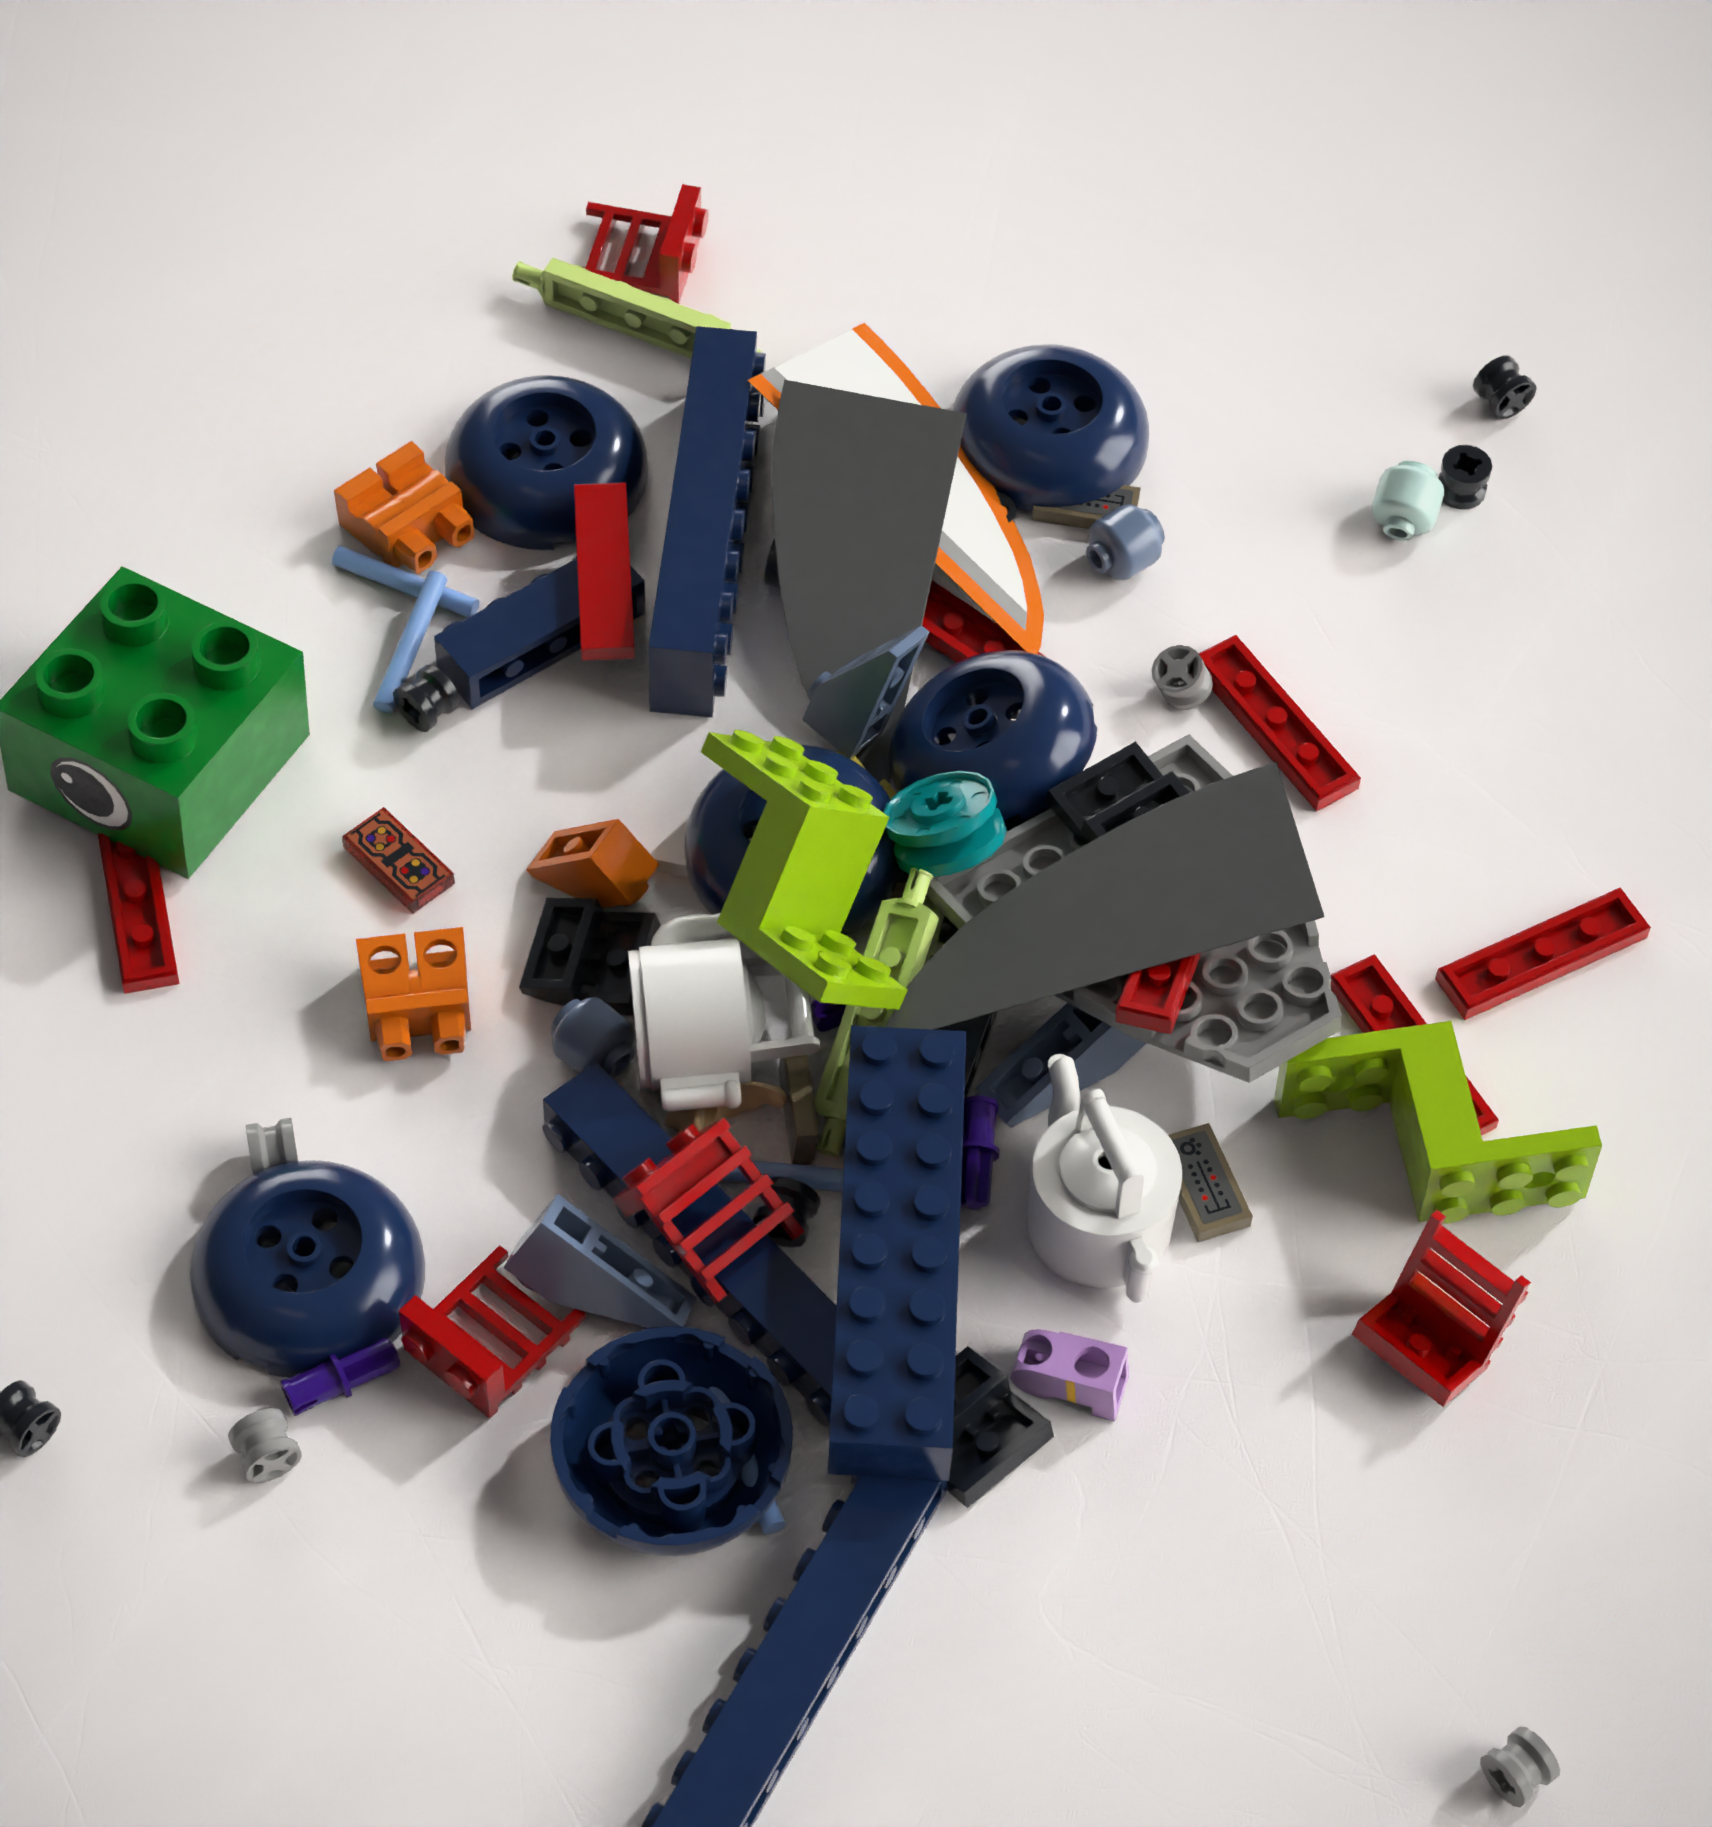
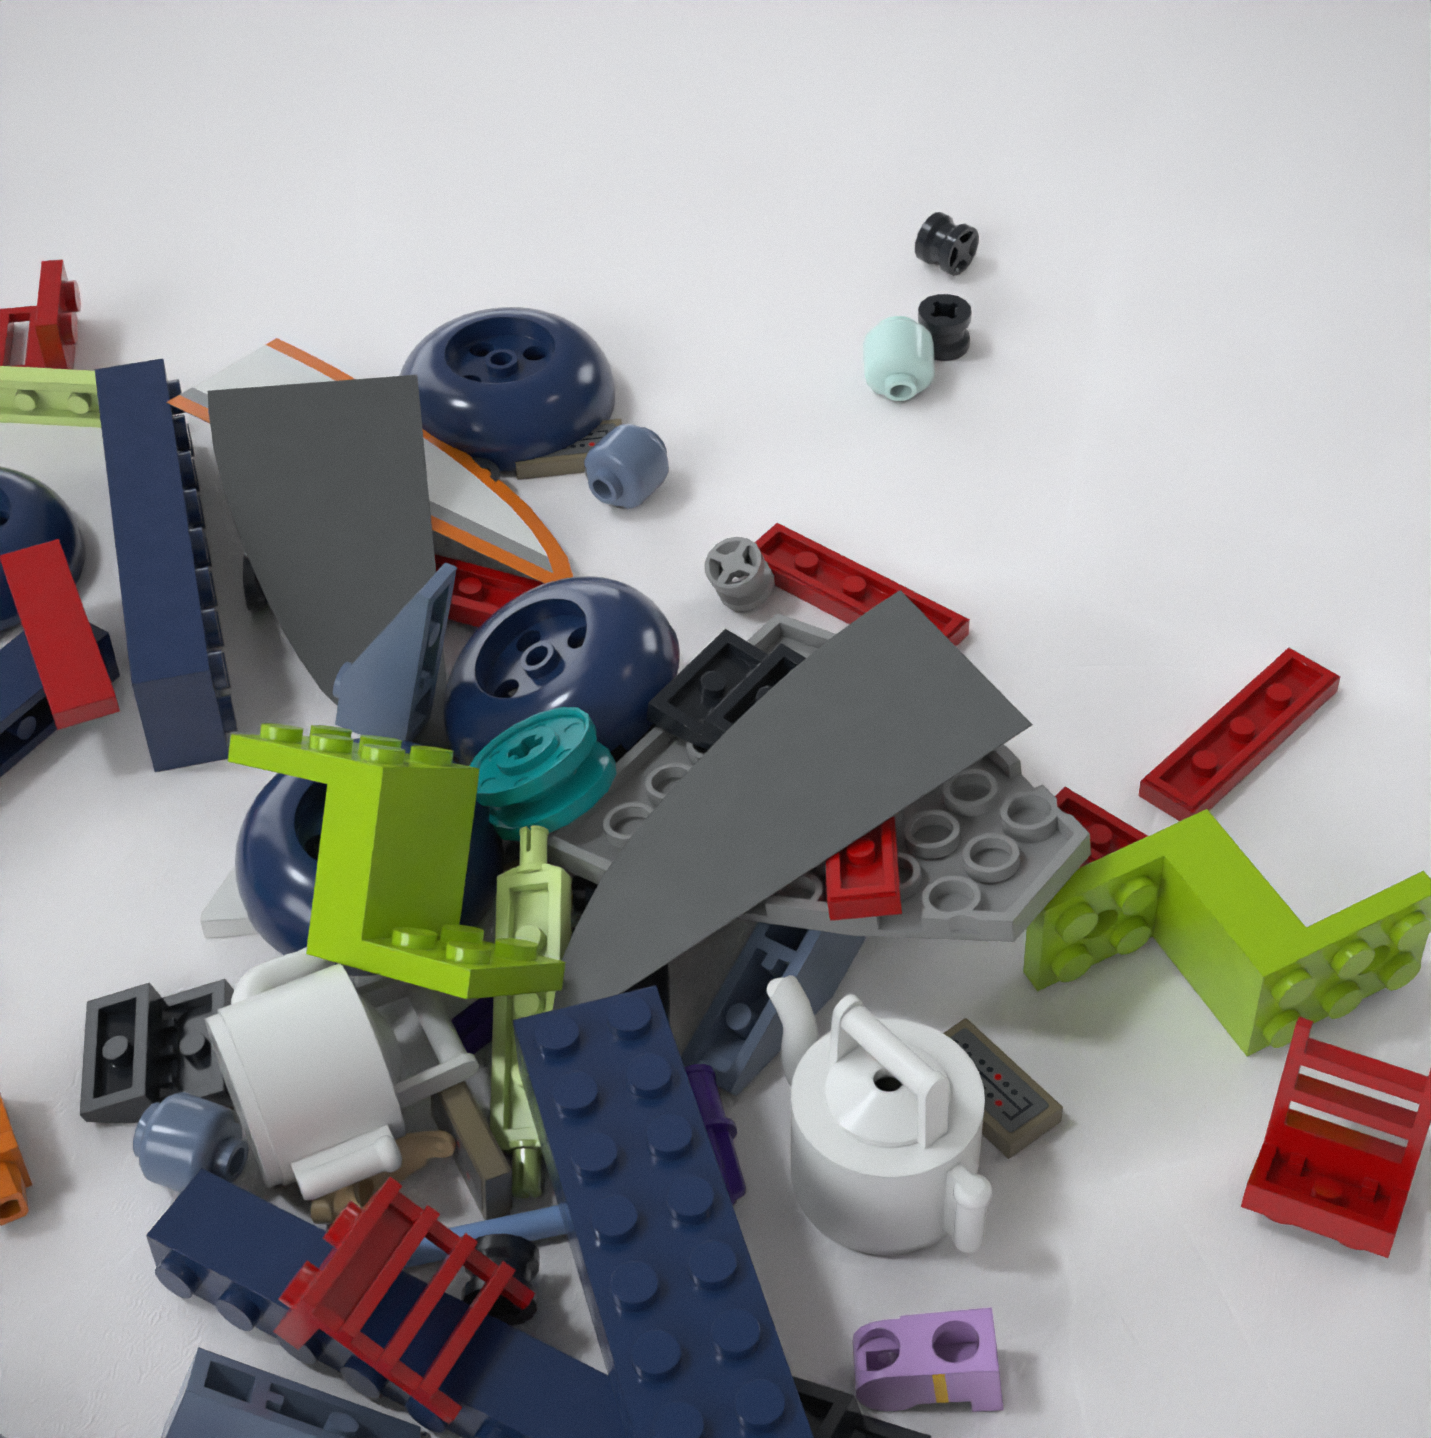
camera: 15 degrees left, 10 degrees down
(595, 862) = (137, 942): orange slope -> none

